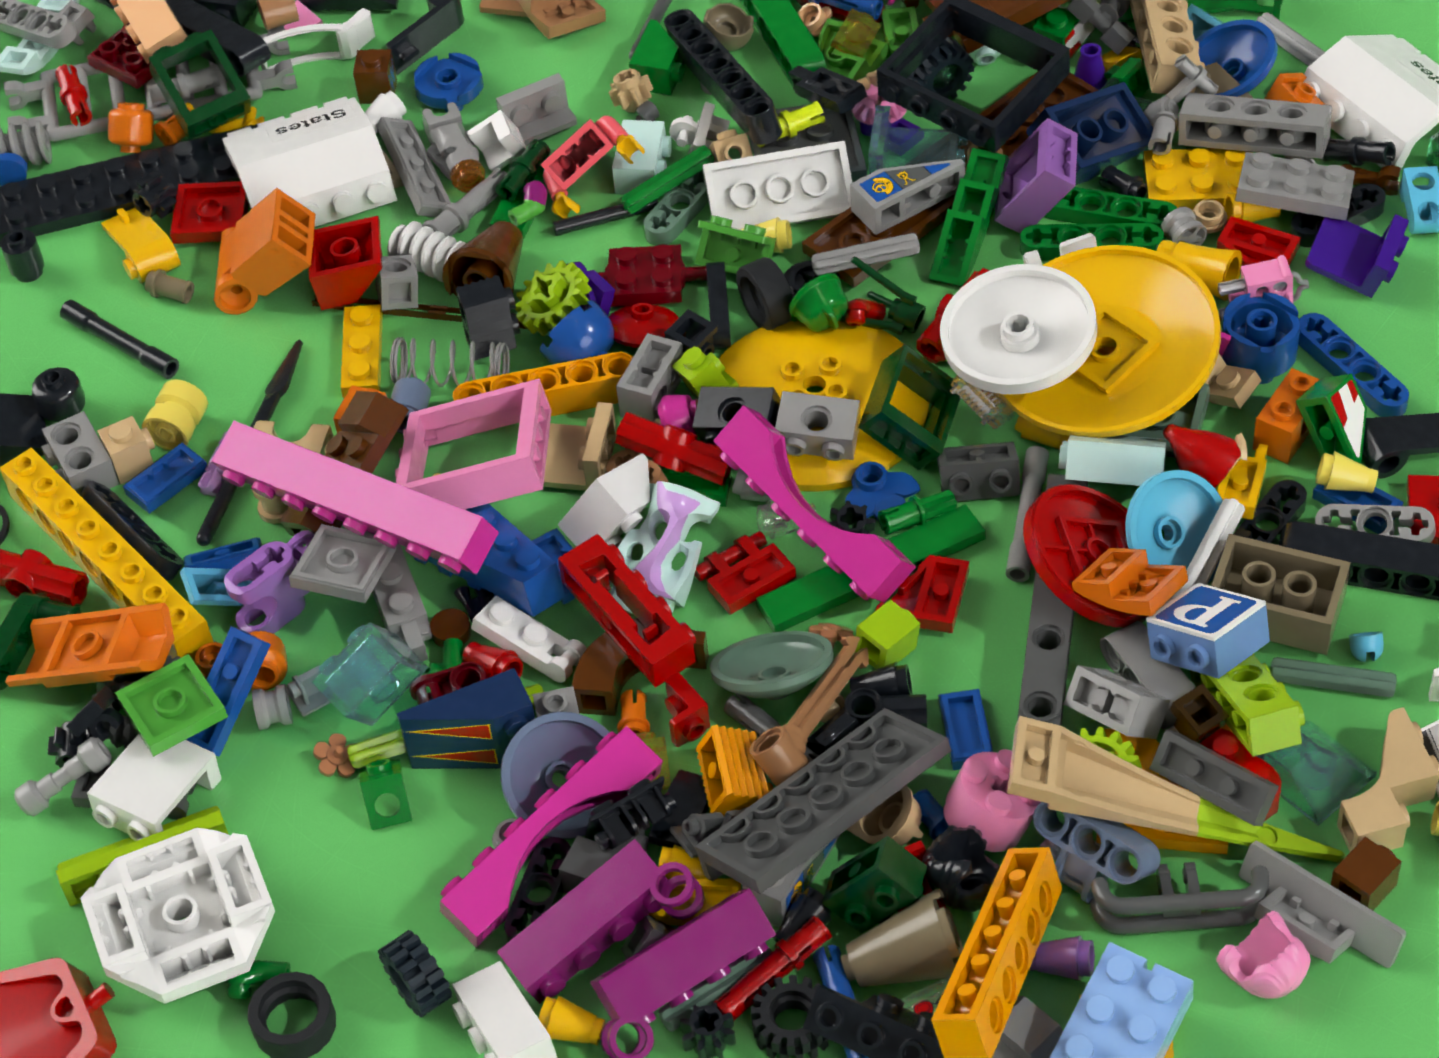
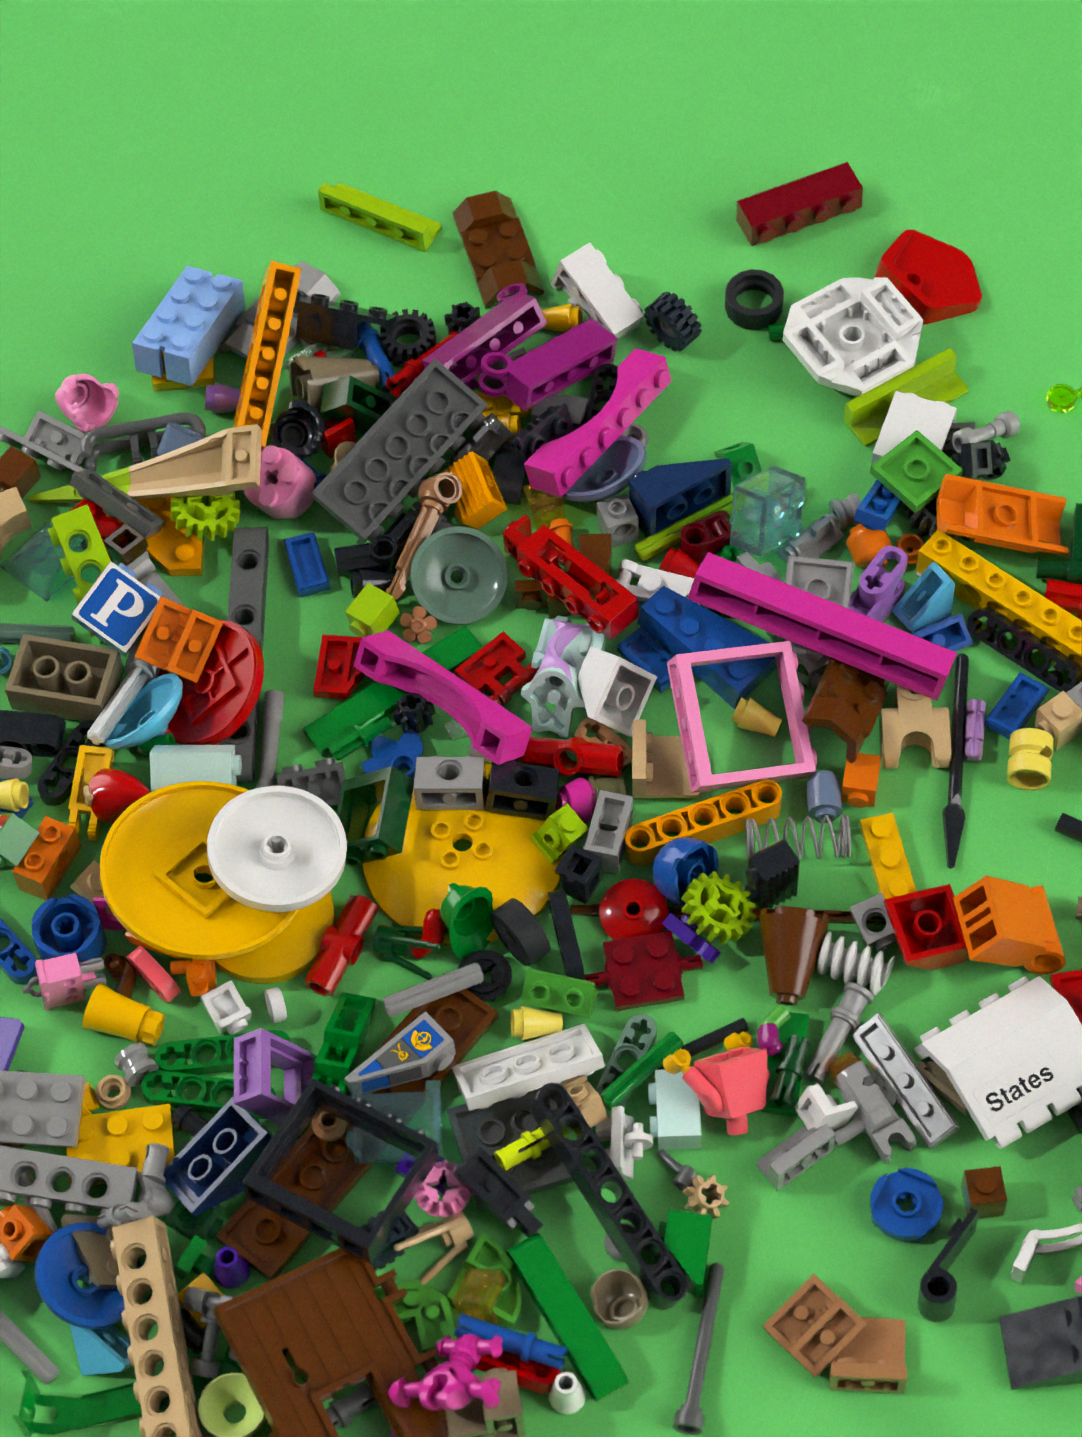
camera: 170 degrees right, 10 degrees up
(387, 106) = (961, 1149): white cone -> none
(814, 17) = (533, 1323): light nougat plate -> none
(1116, 702) = (192, 560): light grey brick -> none
(1257, 241) = (66, 1049): red wing -> none

